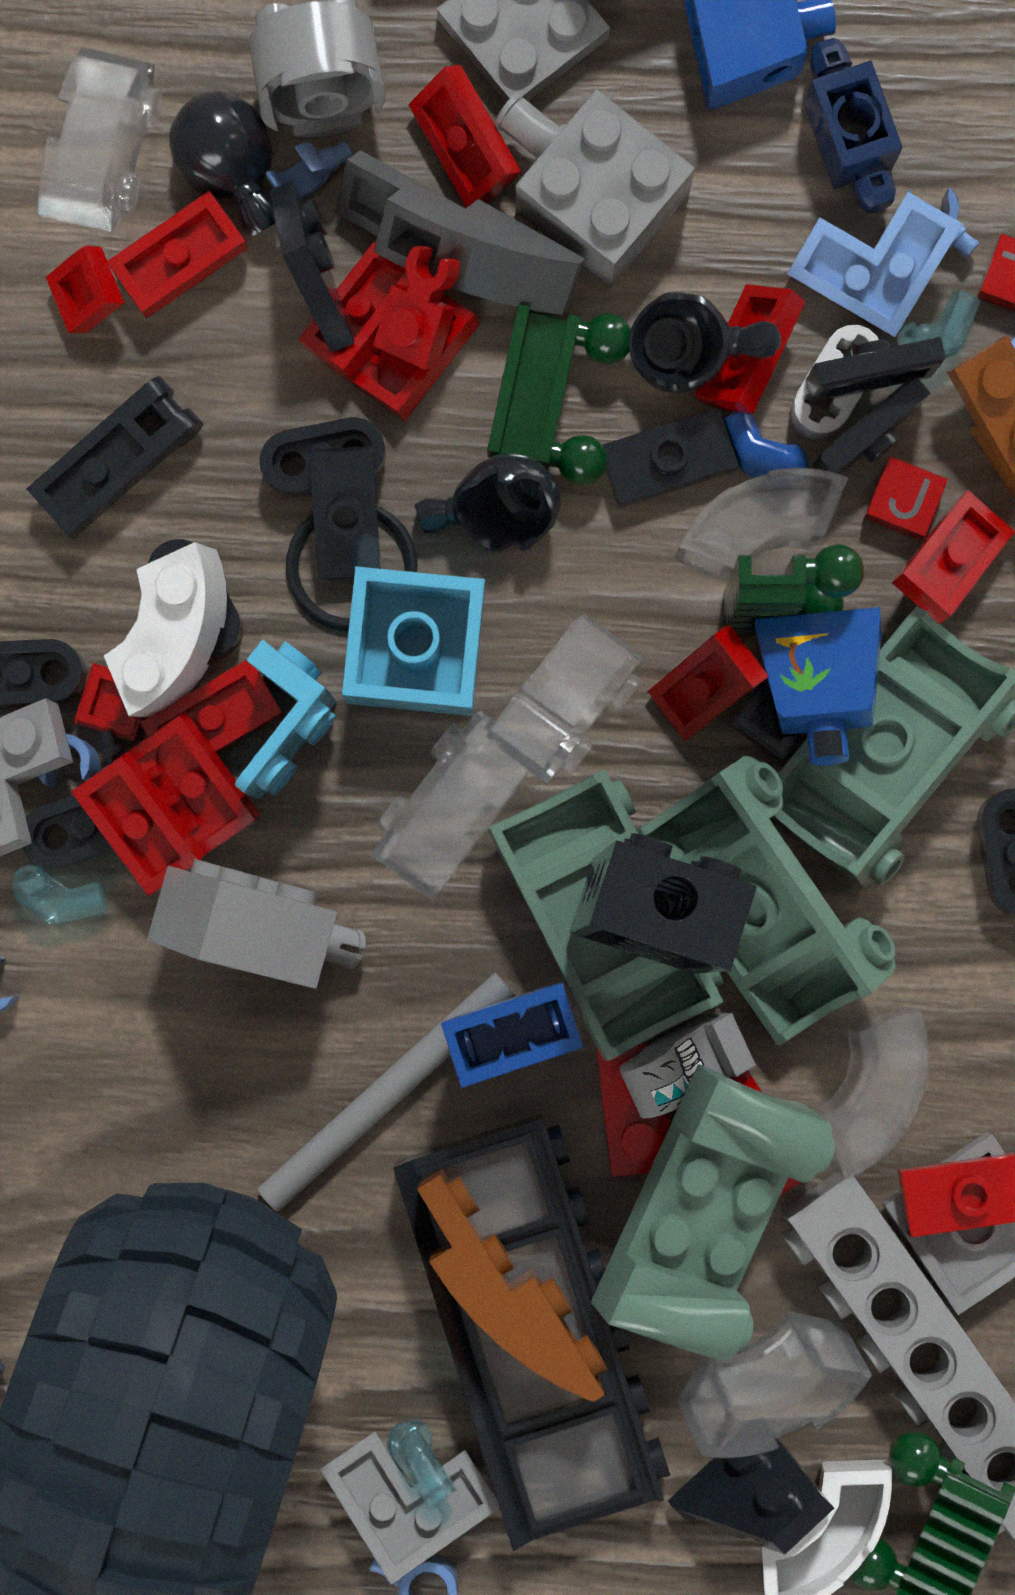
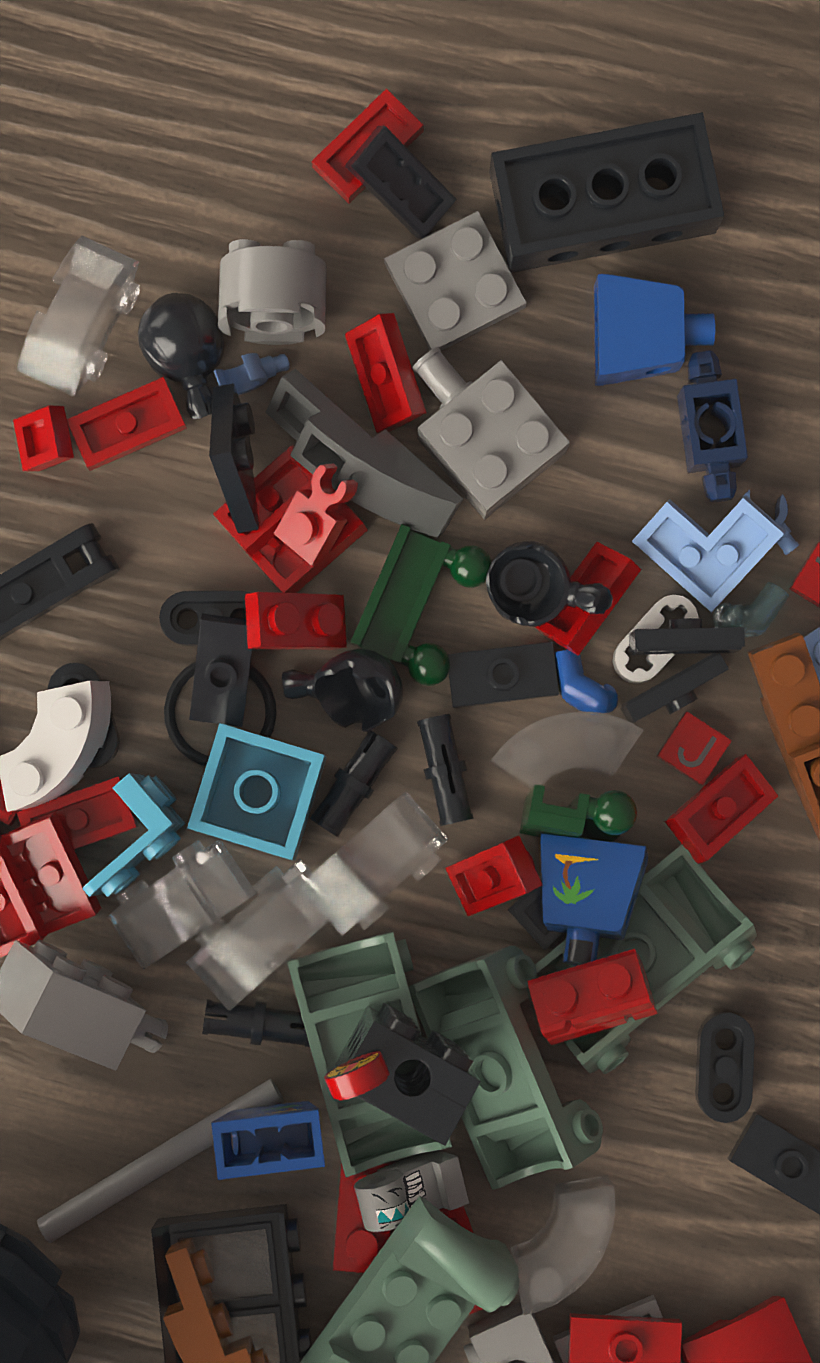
camera: 10 degrees right, 0 degrees up
(353, 785) = (181, 902): none -> clear brick
(418, 438) = (295, 621): none -> red plate
(466, 911) = (255, 1023): none -> black pin
(523, 614) = (353, 783): none -> black pin
(611, 904) = (357, 1076): none -> red tile
(625, 577) = (445, 769): none -> black pin
(854, 791) = (592, 997): none -> red brick

